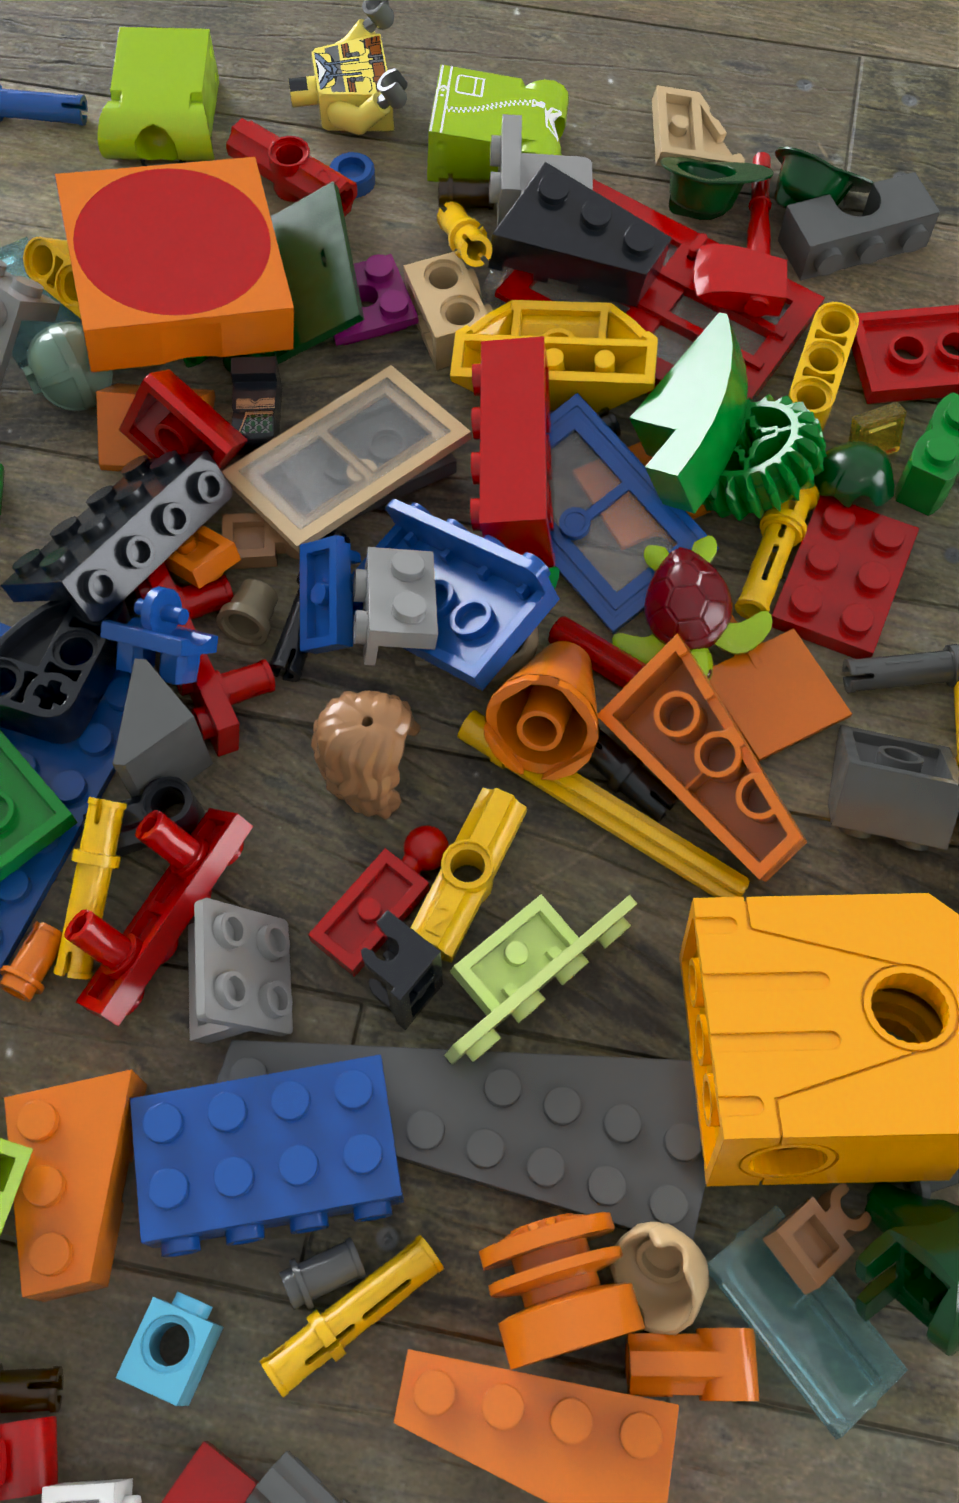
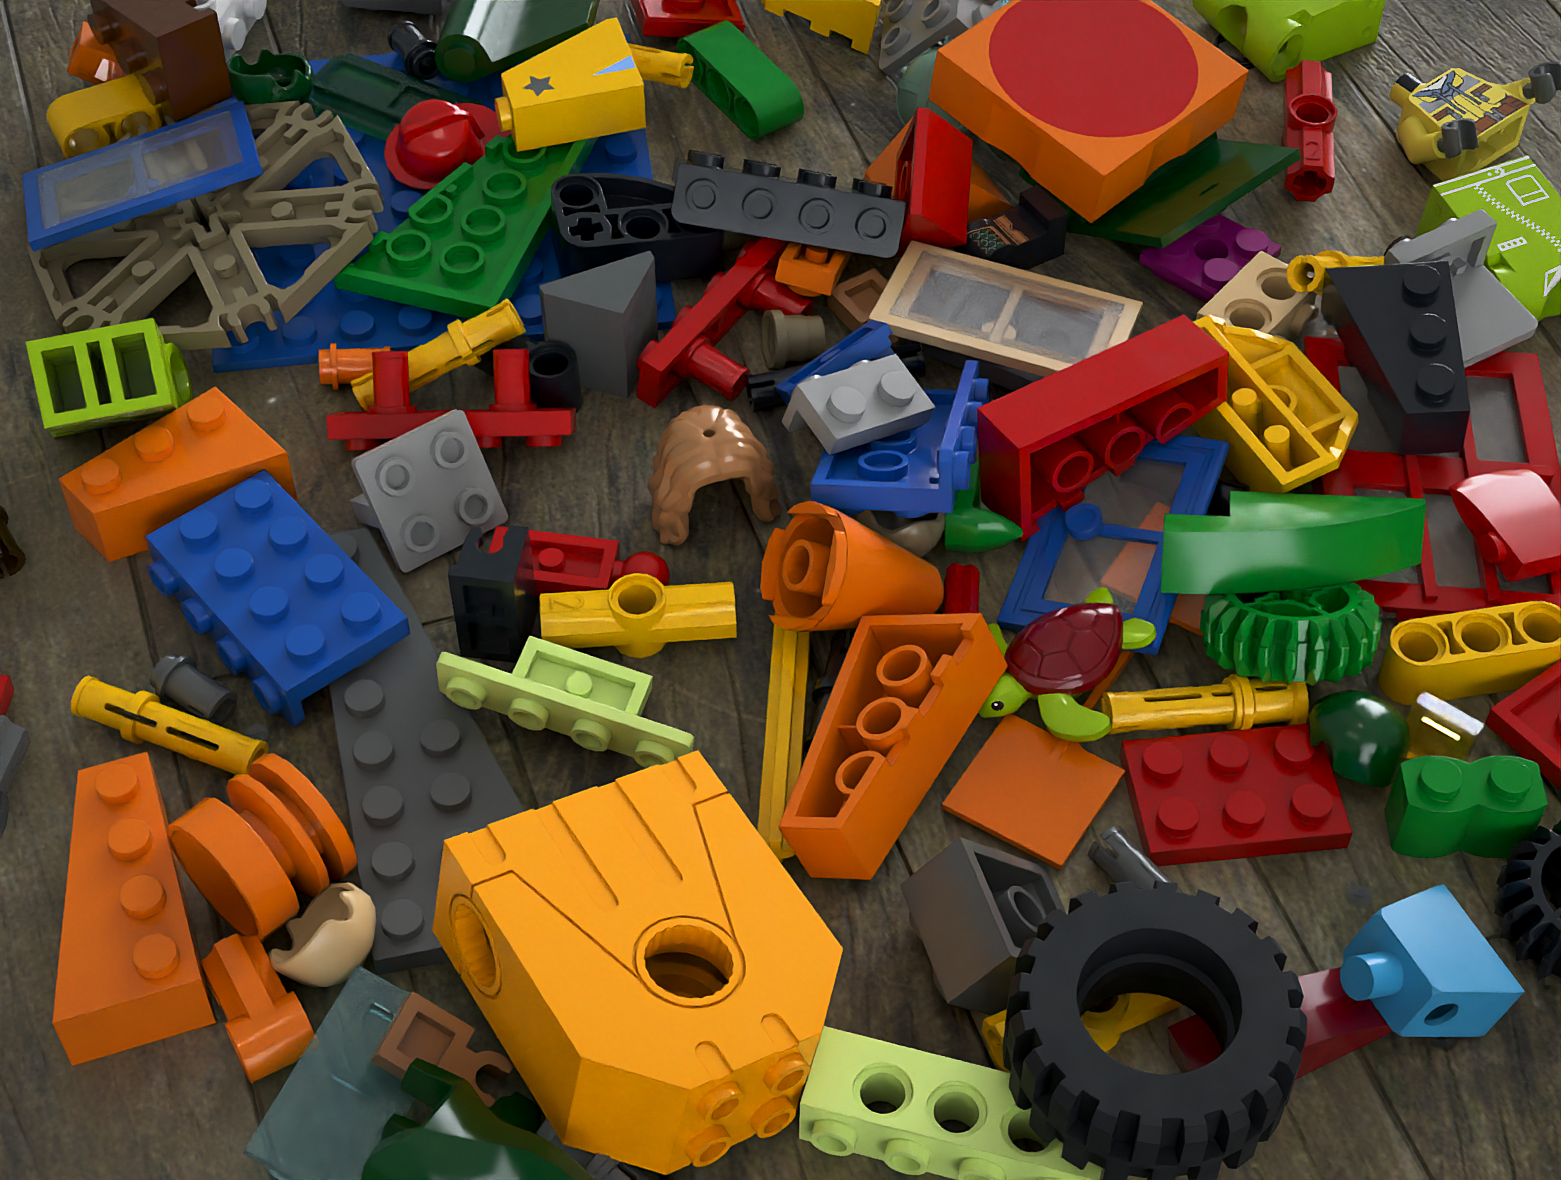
camera: 60 degrees right, 15 degrees down
(143, 1363) = (72, 614): medium azure brick -> none
(159, 632) = (692, 269): blue hips -> none
(356, 168) = (1358, 181): blue tile -> none

